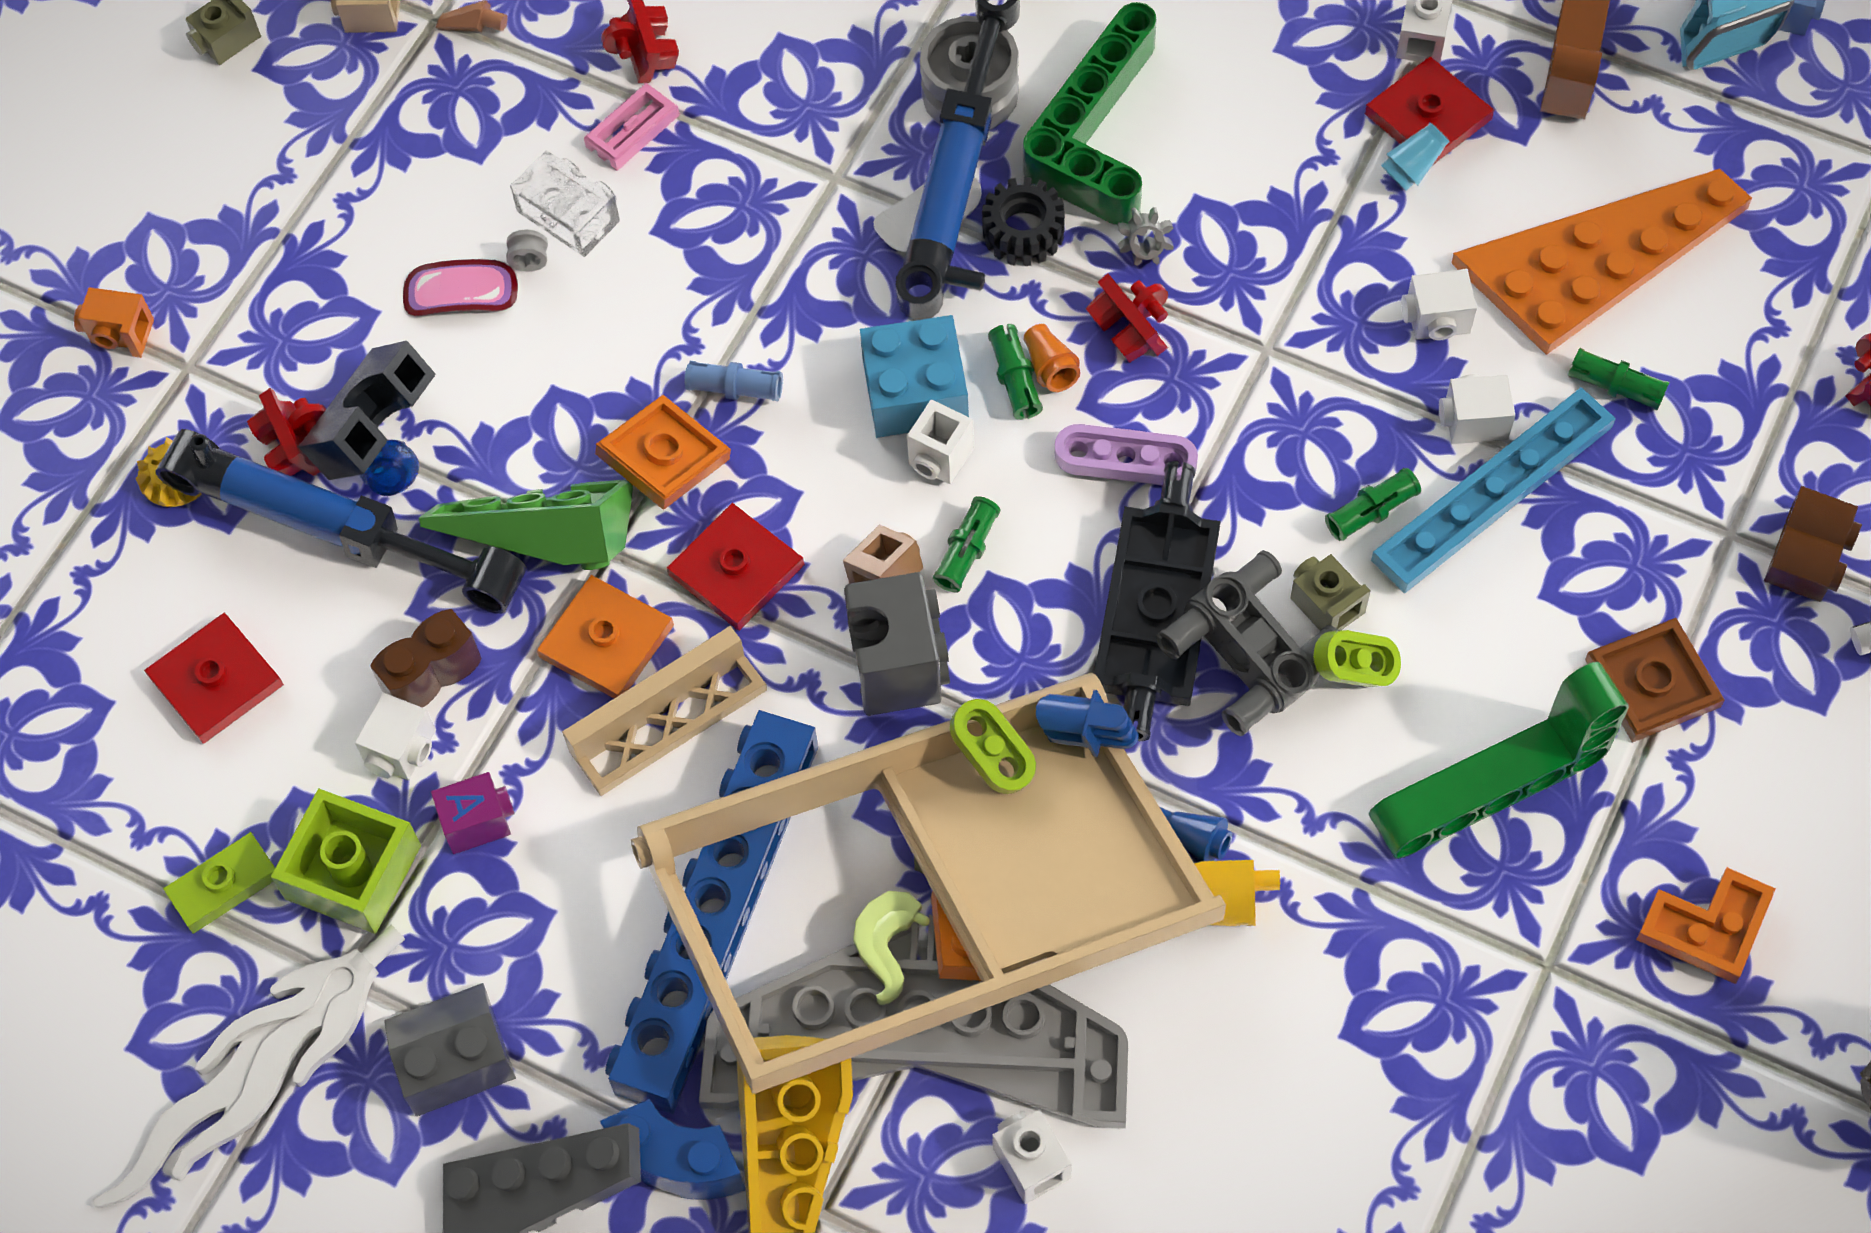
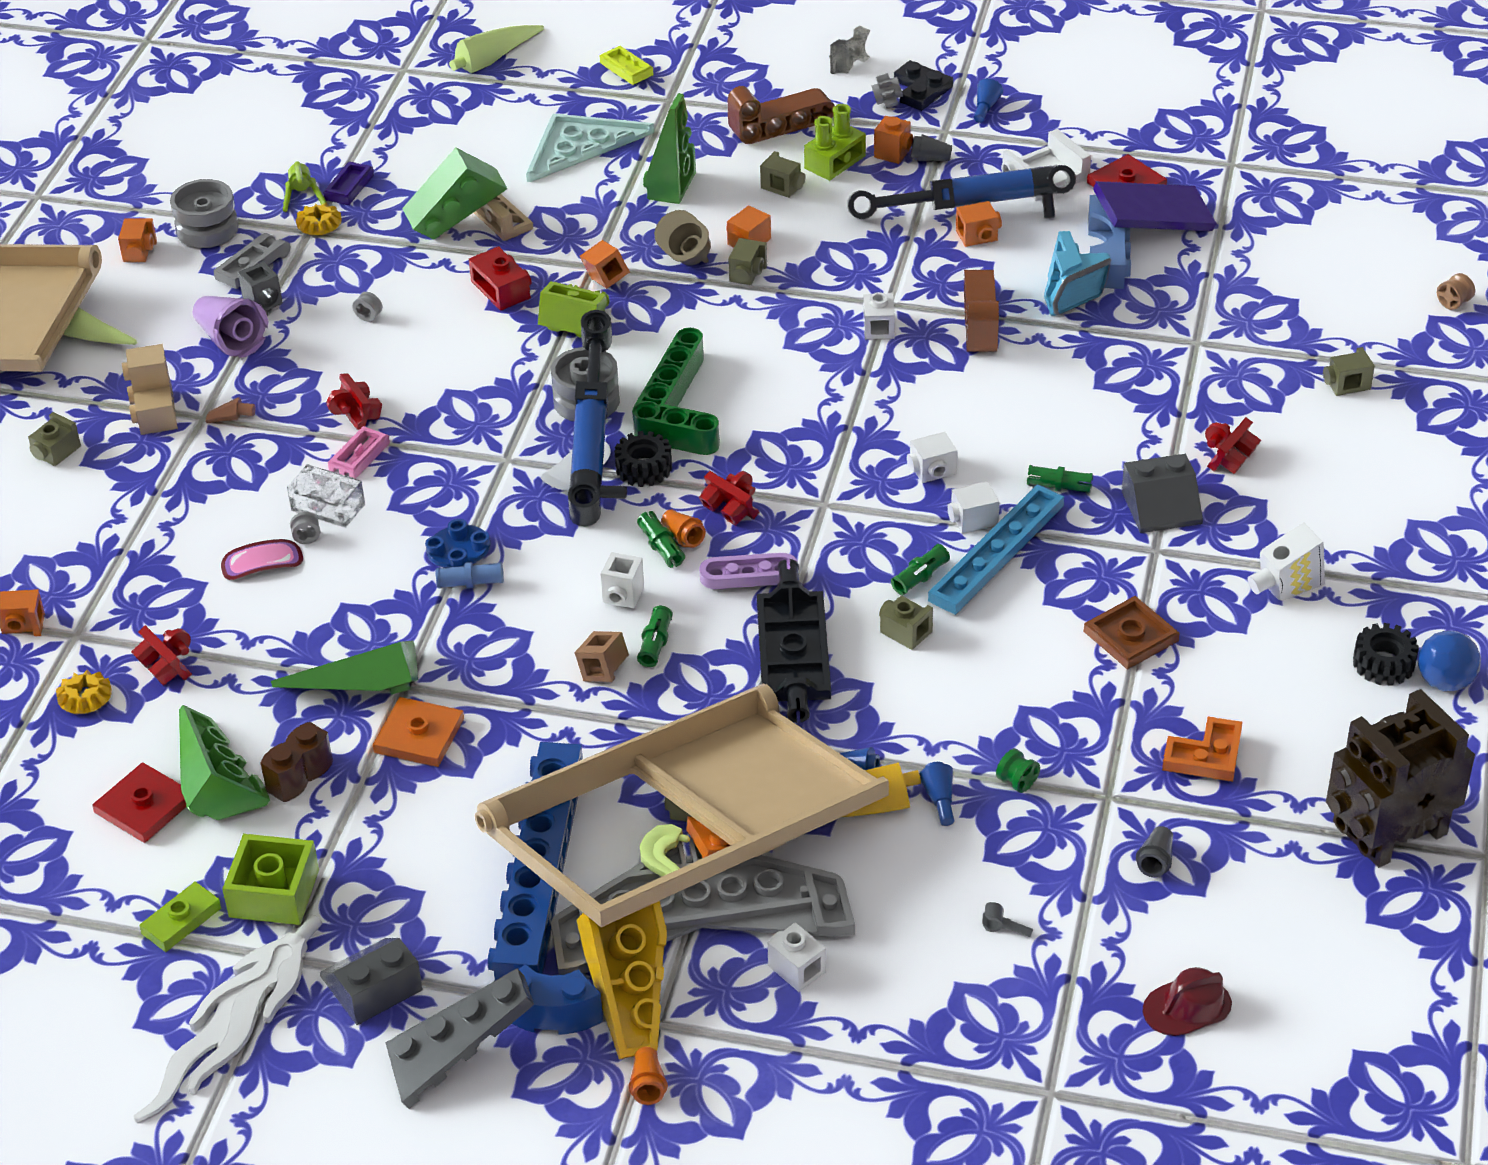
camera: 15 degrees left, 20 degrees down
(314, 654) = (212, 773): none -> bright green wedge
(347, 432) = (212, 634): black arch -> none
(361, 528) = (231, 694): black piece -> none
(392, 469) = (238, 659): clear blue animal -> none
(395, 738) = (286, 808): white brick -> none
(473, 812) = (352, 840): magenta brick -> none
(654, 697) = (463, 759): tan fence -> none
(663, 451) = (431, 621): orange plate -> none
(730, 323) = (458, 544): none -> blue dish
(735, 566) = (498, 677): red plate -> none
(897, 643) = (624, 684): dark grey piece -> none
(909, 367) = (585, 545): dark azure piece -> none
(996, 744) = (708, 725): lime plate -> none
(1085, 722) = (766, 706): blue arm -> none
(1139, 225) = (721, 457): light grey gear -> none
(1248, 641) = (862, 650): dark grey piece -> none
(1305, 898) = (938, 783): none -> blue cone
(1327, 1152) = (994, 920): none -> dark grey hand
(1357, 658) = (935, 647): lime plate -> none
(1415, 156) = (893, 382): medium azure cone -> none
(1424, 900) = (1018, 770): none -> green wheel
(1428, 96) = (895, 362): red plate -> none
(1569, 741) = (1056, 689): green beam -> none
(1583, 265) = (1022, 424): orange wing -> none
(1589, 1090) = (1155, 854): none -> dark grey cone
(1763, 440) = (1162, 493): none -> dark grey slope
(1812, 545) = (1209, 542): reddish brown brick -> none

